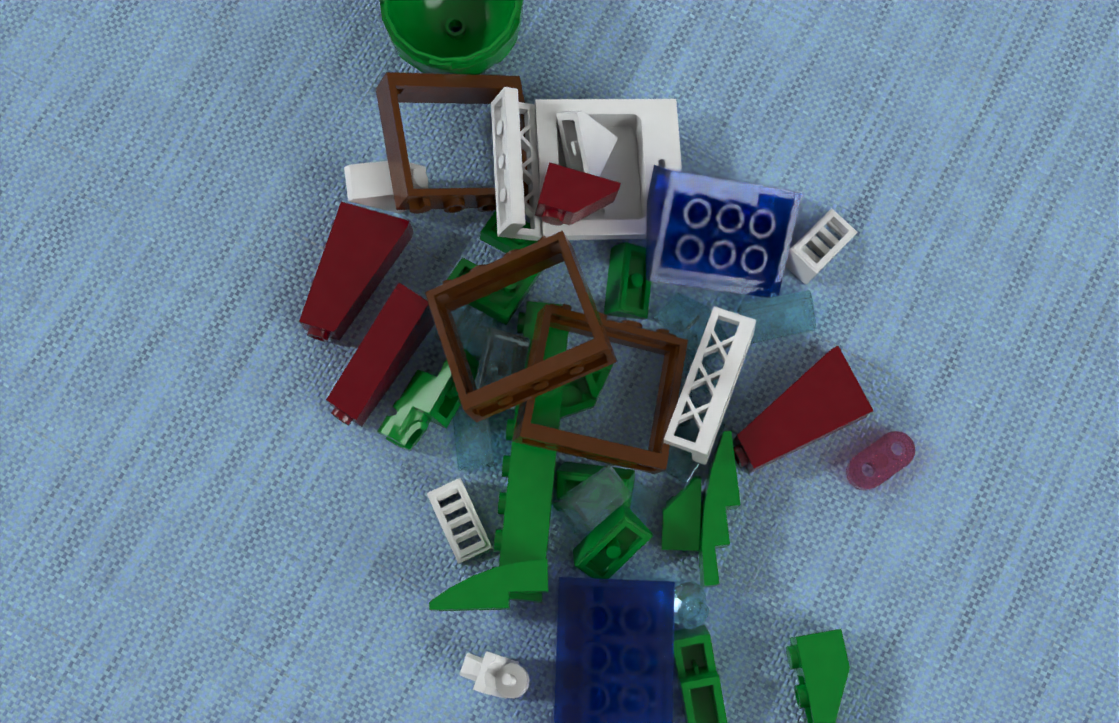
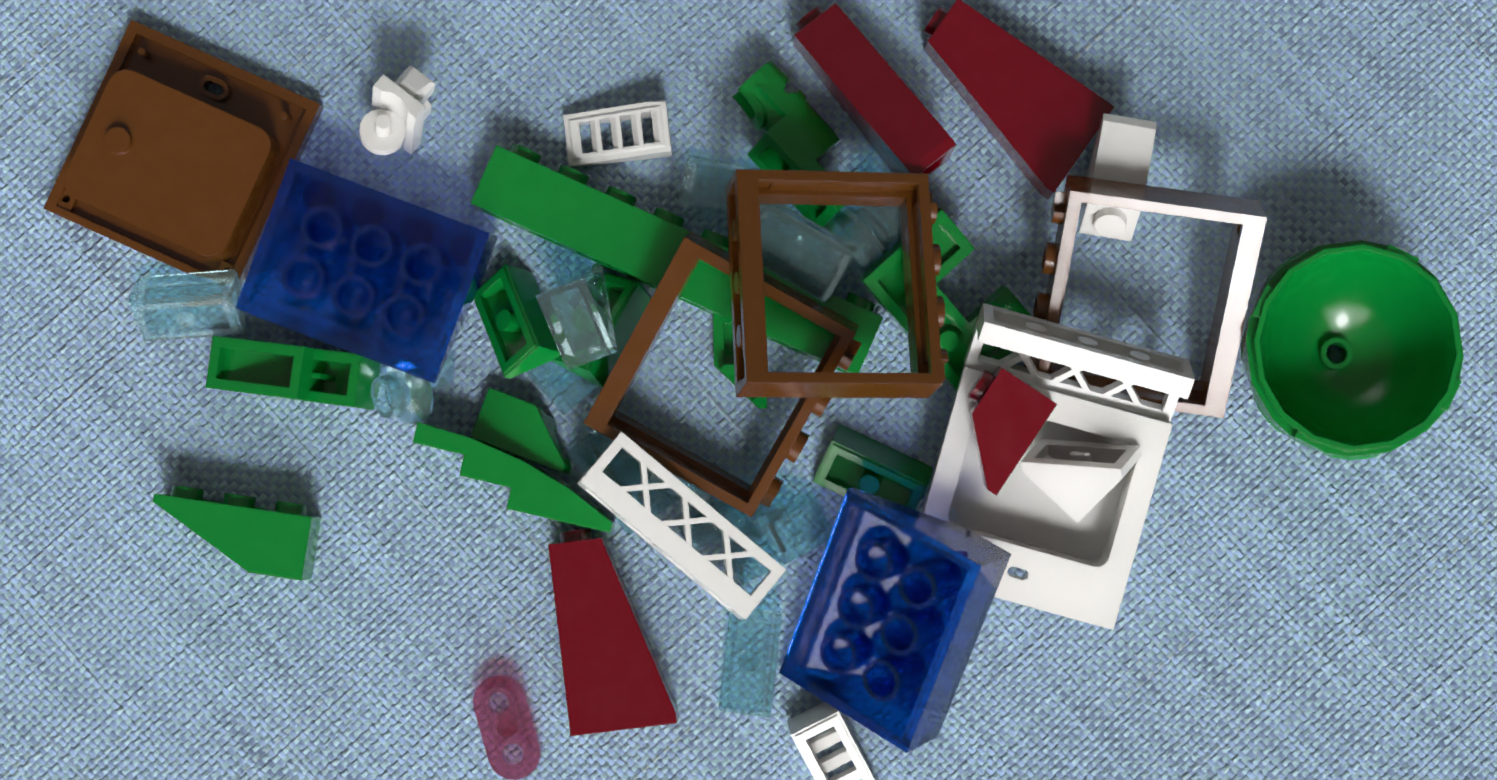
camera: 115 degrees right, 10 degrees up
(493, 587) = (504, 144): green slope -> none

